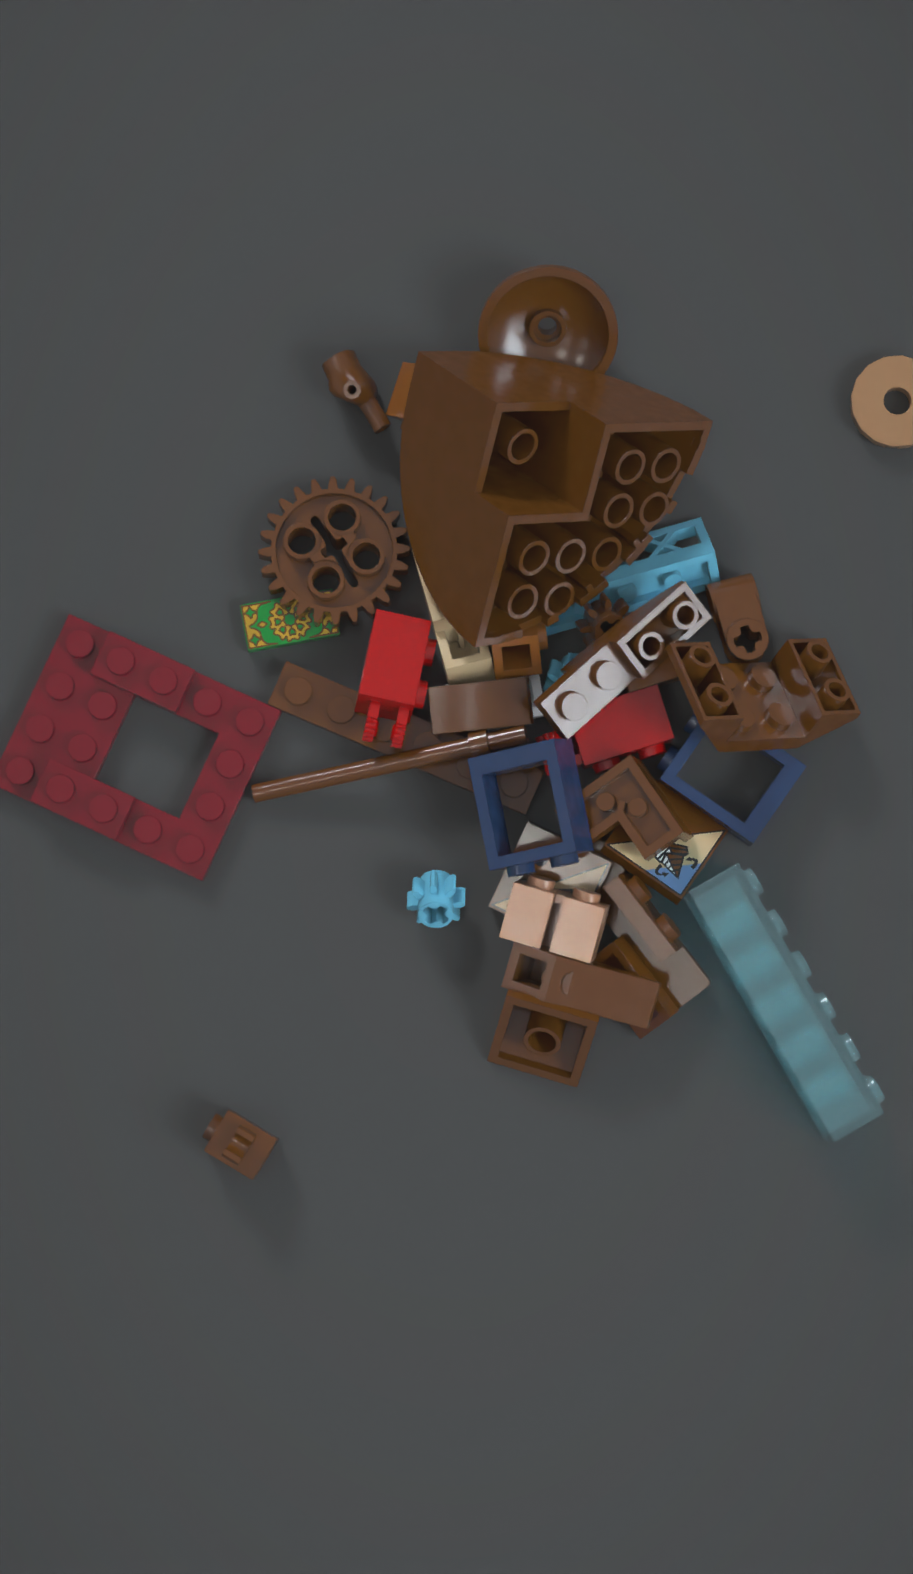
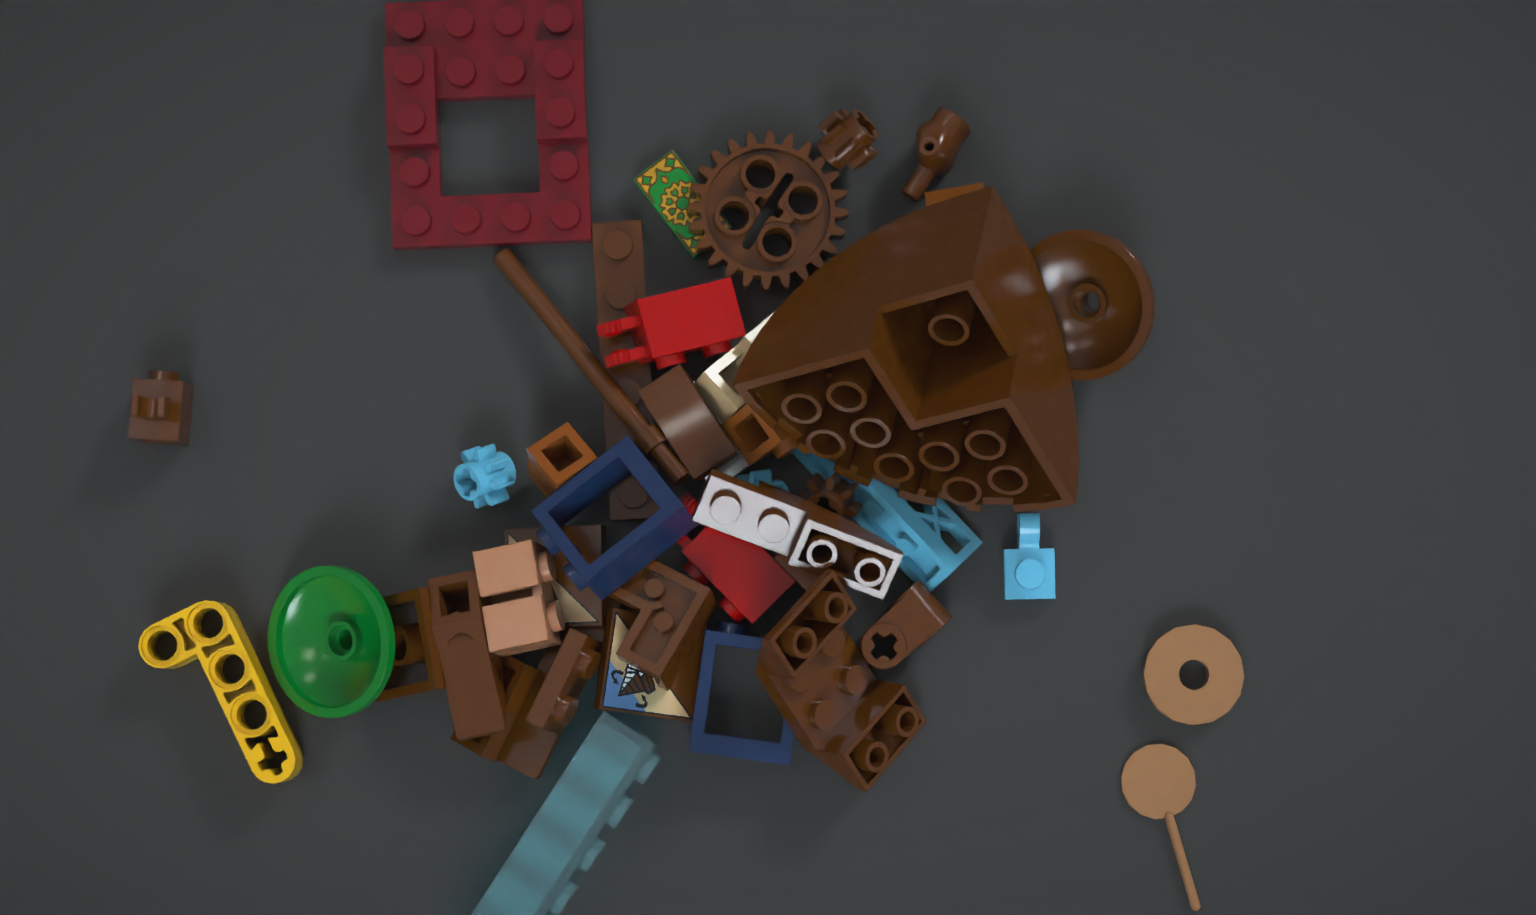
camera: 65 degrees right, 0 degrees up
(308, 454) = (848, 139): none -> reddish brown gear
(457, 829) = (557, 459): none -> dark orange brick
(507, 1116) = (314, 647): none -> green dish
(511, 1202) = (234, 697): none -> yellow beam
(741, 490) = (1028, 570): none -> medium azure plate

